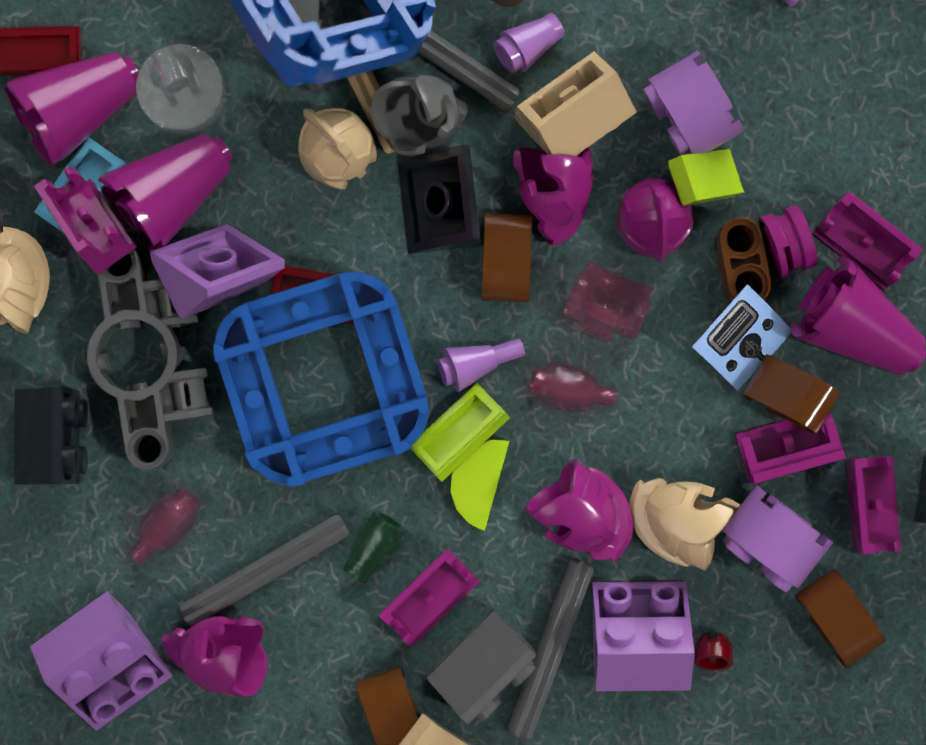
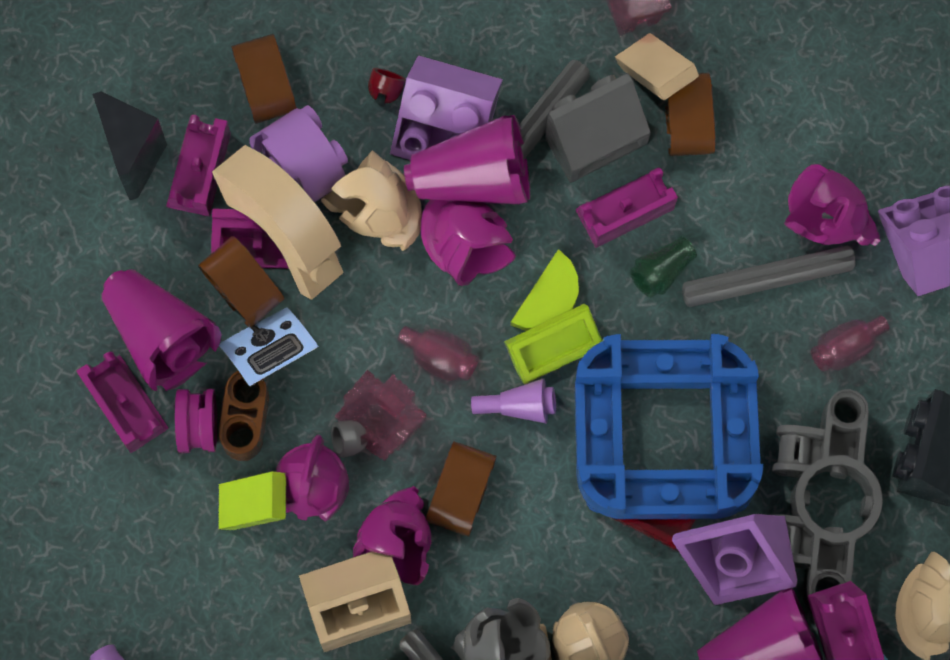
camera: 165 degrees left, 10 degrees down
(439, 201) = (507, 557): black slope -> none
(594, 581) = (473, 166): none -> magenta cone
(632, 271) = (347, 438): none -> dark grey hinge
(694, 105) = (242, 570): medium lavender brick -> none
(773, 468) = (286, 213): none -> tan arch

